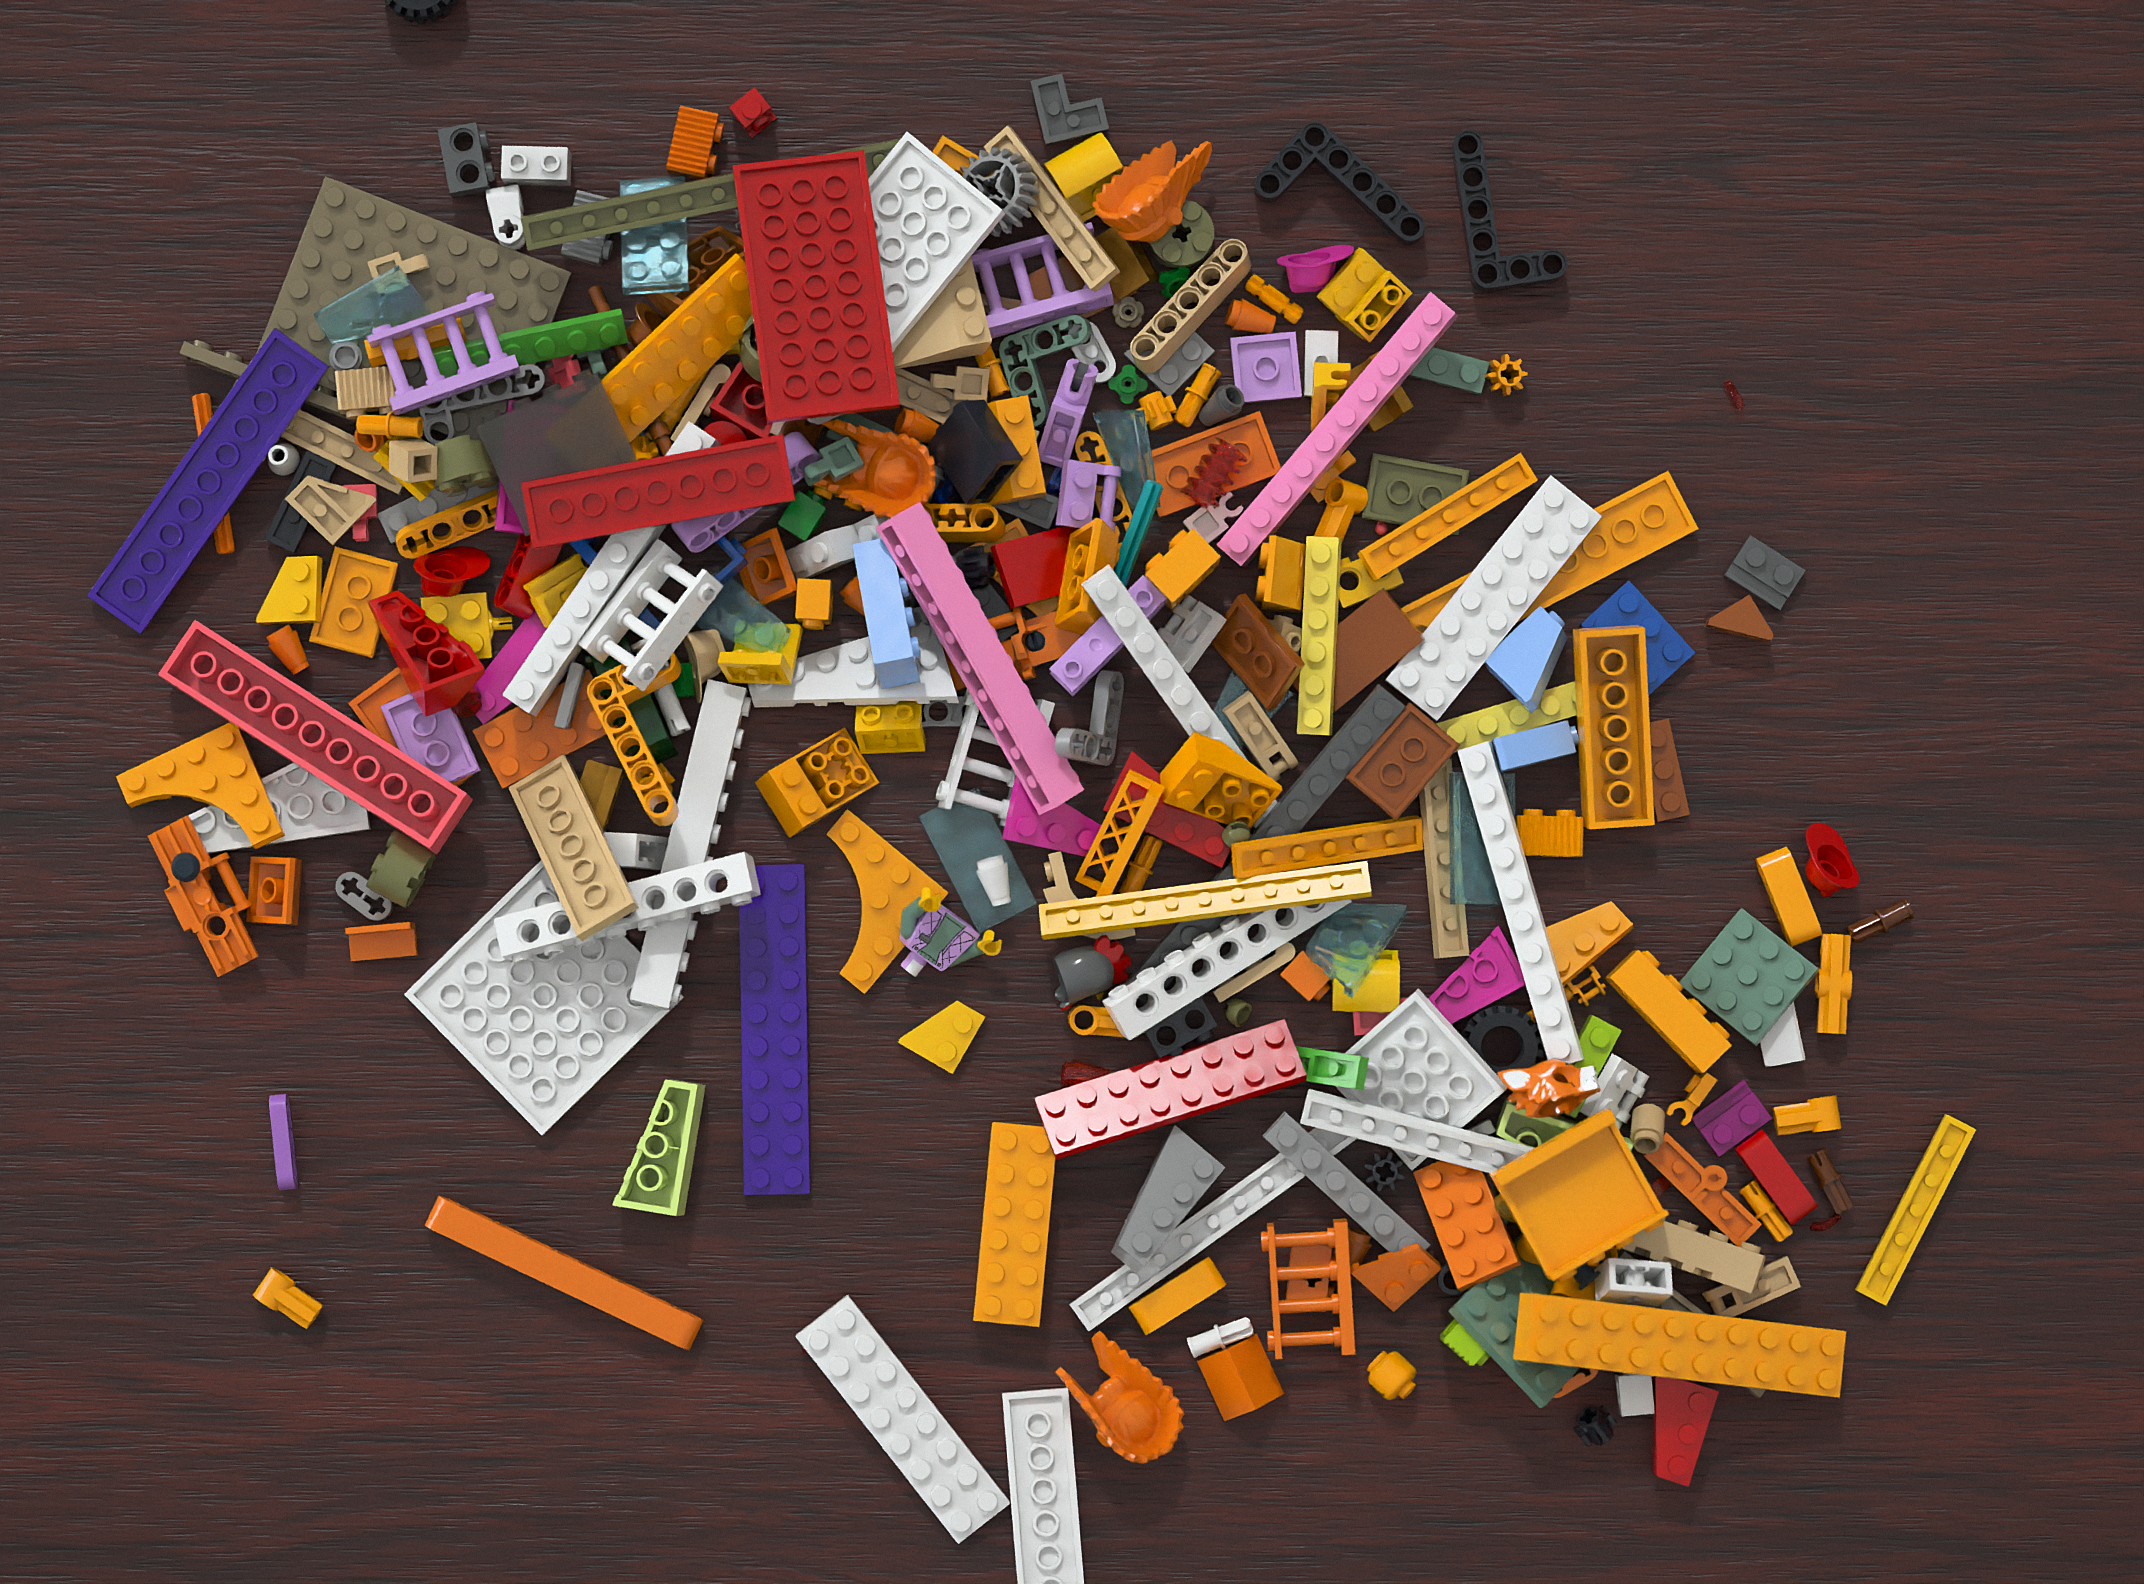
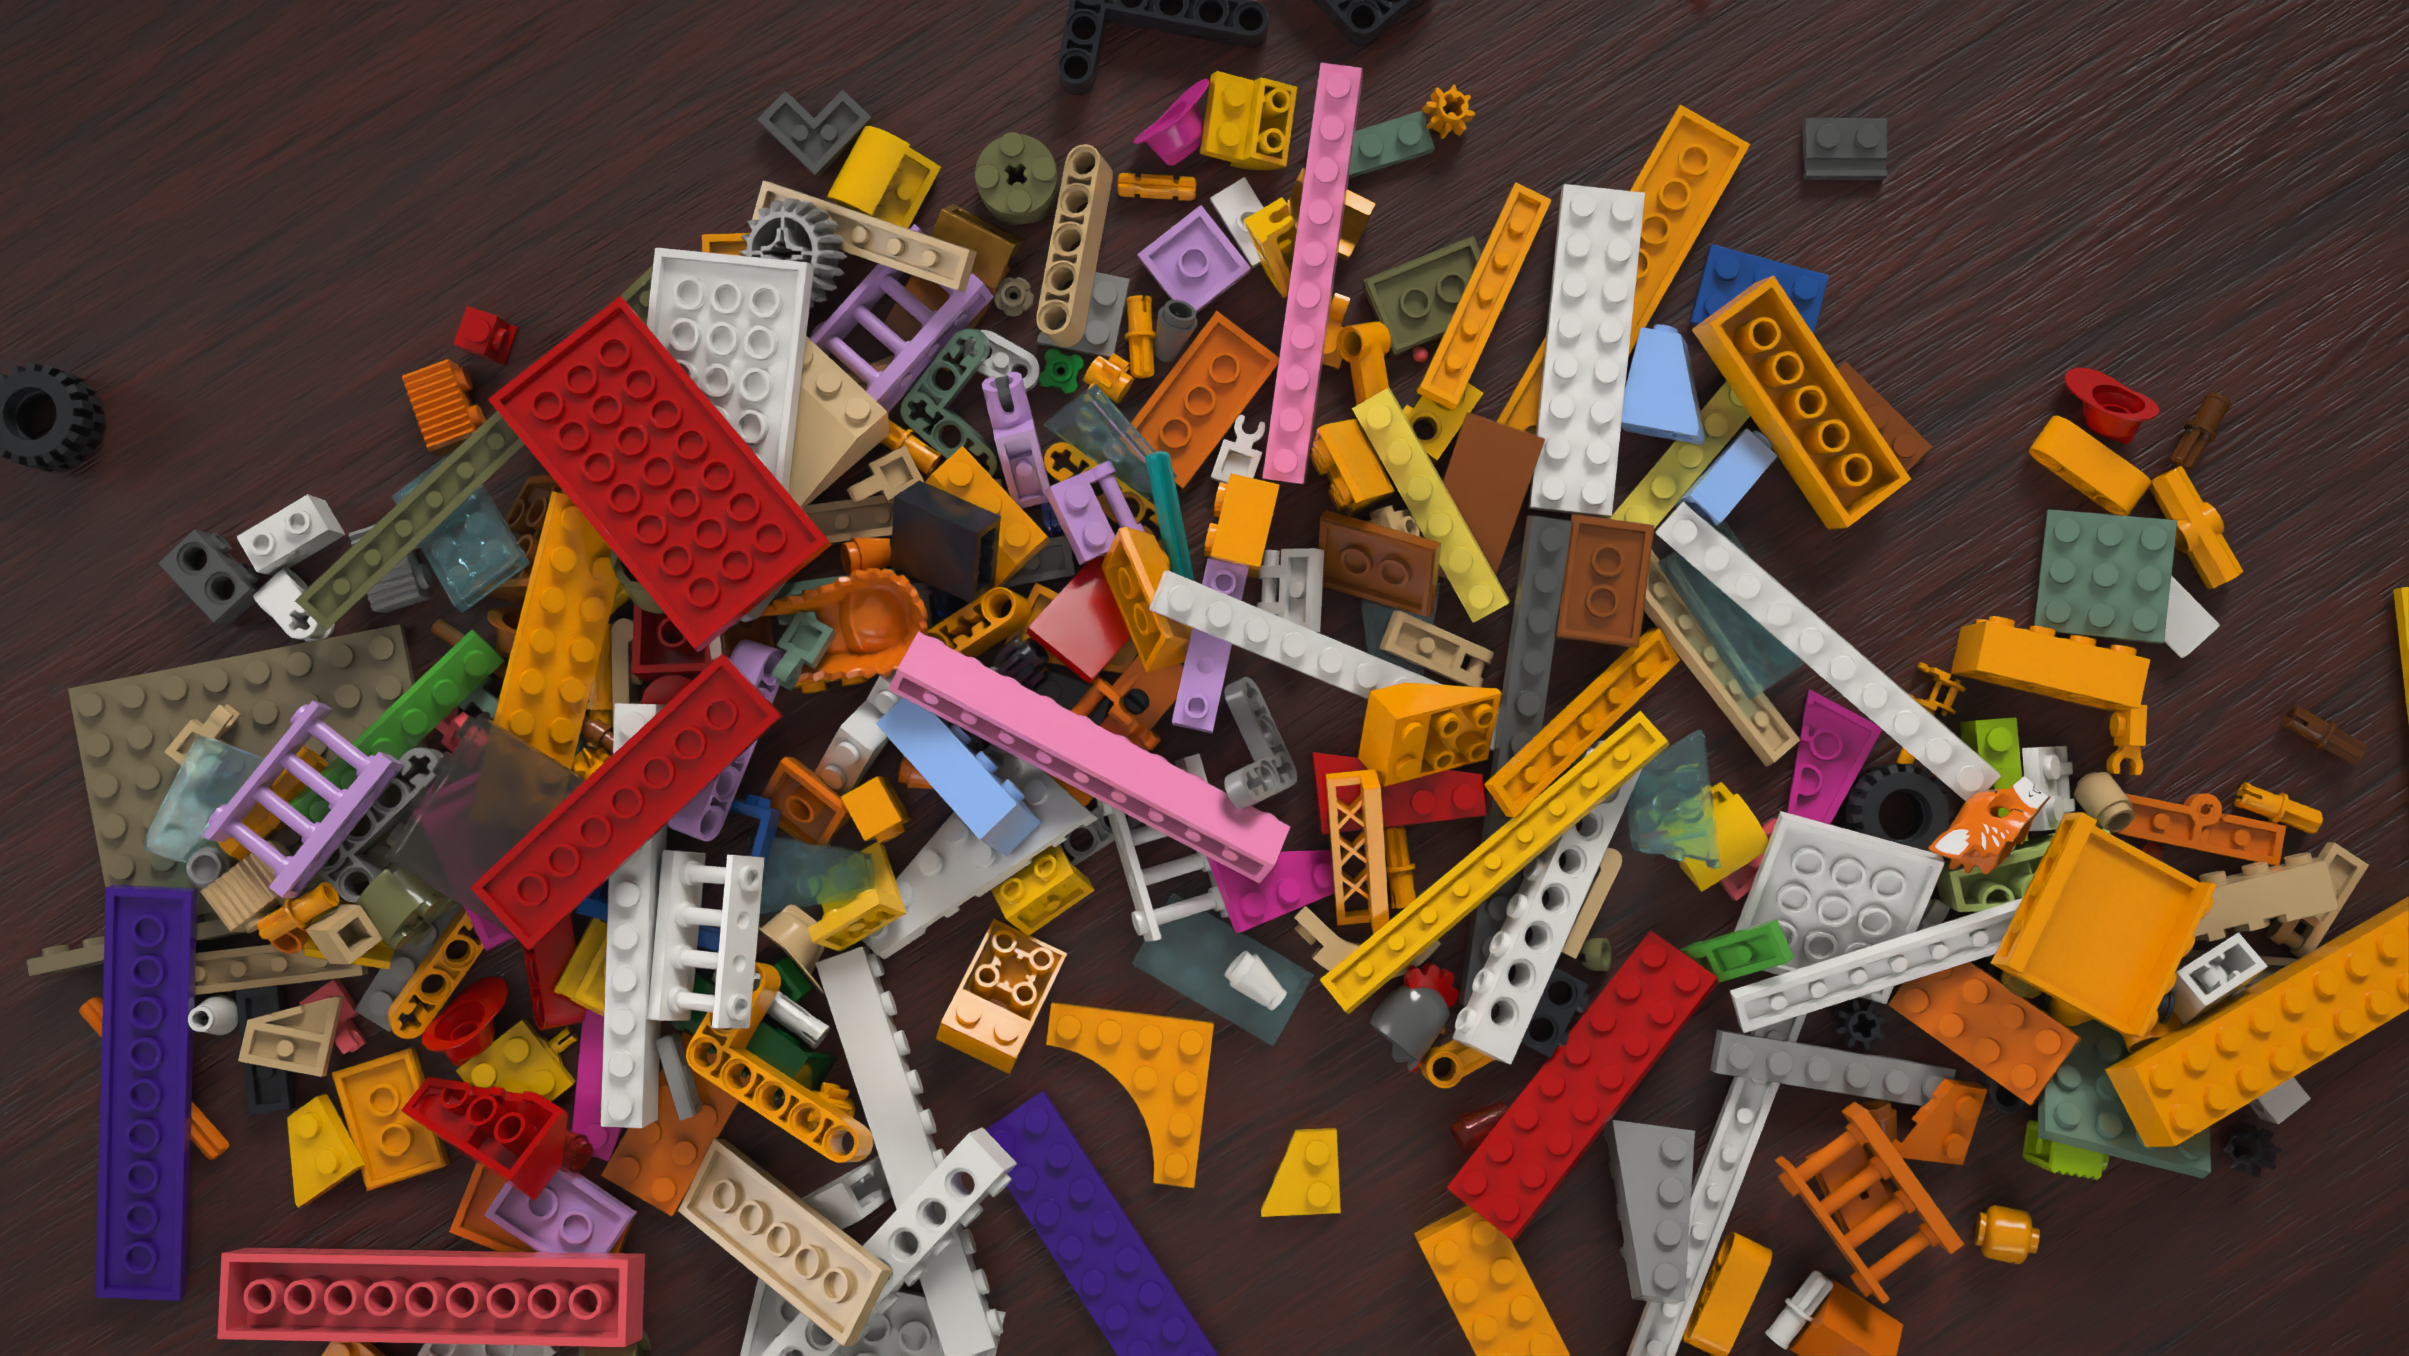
camera: 40 degrees left, 0 degrees up
(288, 648) = (350, 1214): orange cone -> none
(601, 787) = (778, 1155): pearl gold panel -> none
(803, 515) = (808, 724): green brick -> none
(940, 936) = (1236, 1077): torso -> none
(1151, 192) = (958, 152): orange piece -> none
(1173, 280) = (1032, 233): green plate -> none
(1213, 474) = (1211, 406): clear red piece -> none
(1236, 832) = (1480, 770): olive hinge -> none
(1248, 317) = (1141, 222): orange cone -> none
(1306, 977) = (1646, 872): orange brick -> none
(1550, 835) = (1806, 558): light orange brick -> none
(1586, 937) = (1909, 641): light orange wing -> none
(1679, 1426) = (2349, 1105): red wedge -> none
(1730, 1118) = (2178, 734): magenta plate -> none
(1742, 620) = (1857, 209): dark orange slope -> none
(1776, 1177) = (2267, 766): red beam -> none
(1814, 1115) = (2266, 675): light orange piece -> none
(1827, 1224) = (2342, 784): clear red leg -> none

